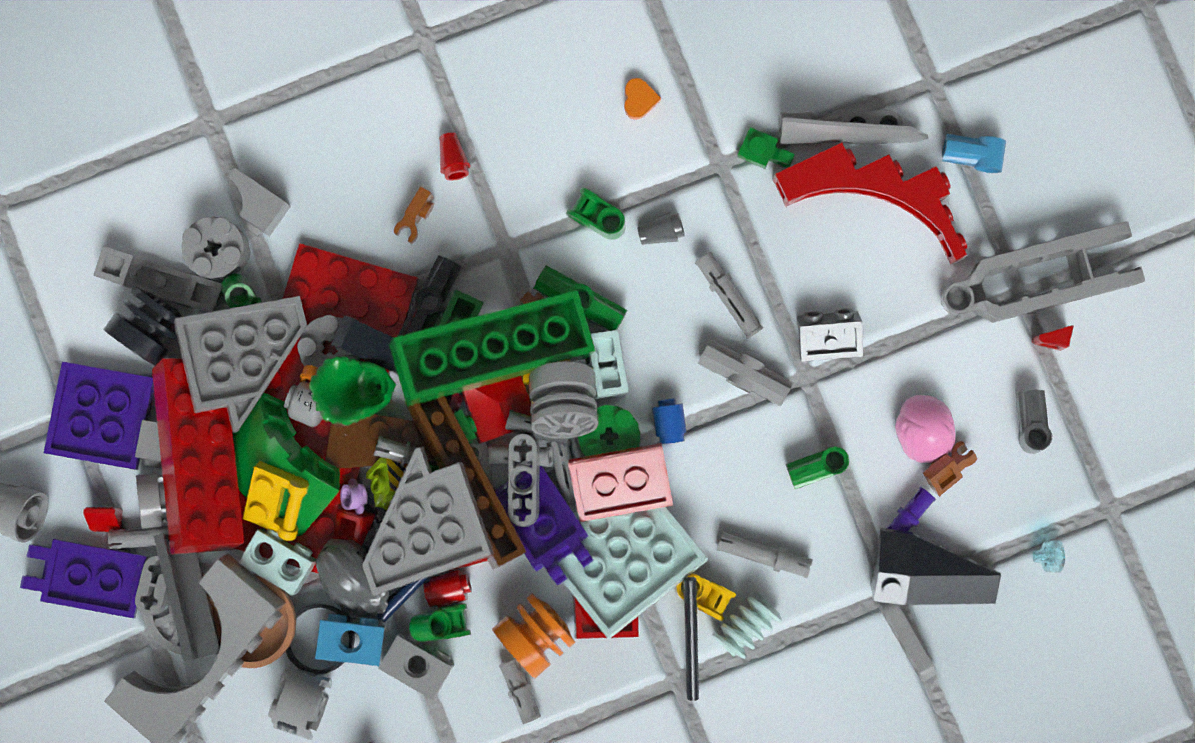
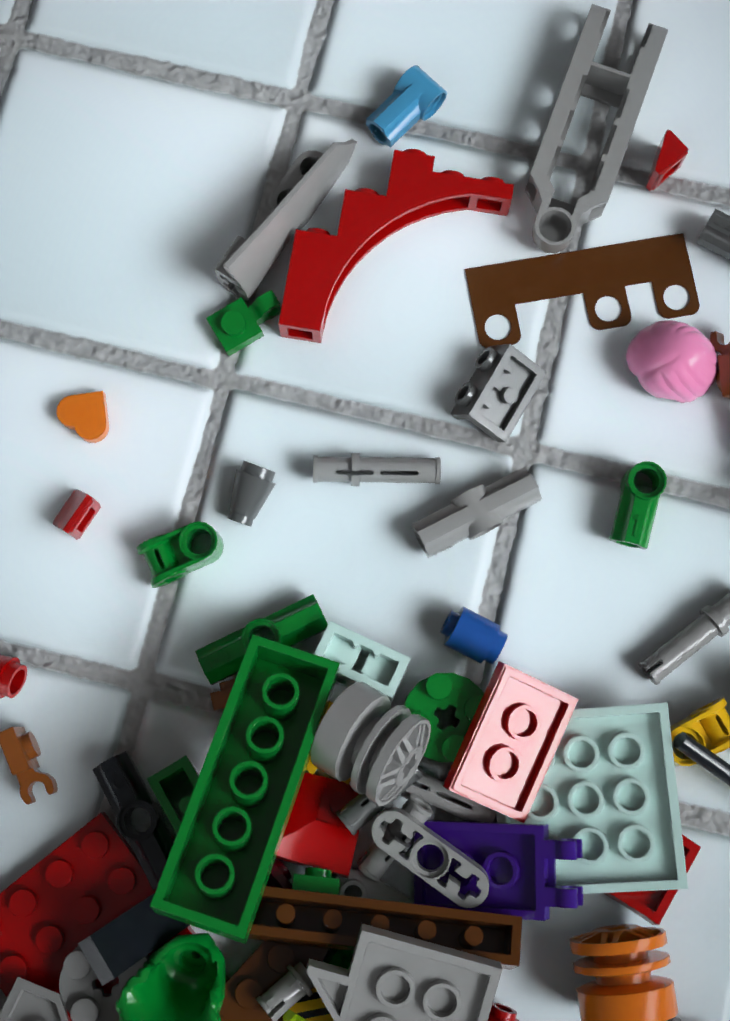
camera: 60 degrees left, 5 degrees down
(577, 137) = (77, 514): none -> red slope
(949, 340) = (588, 271): none -> reddish brown piece

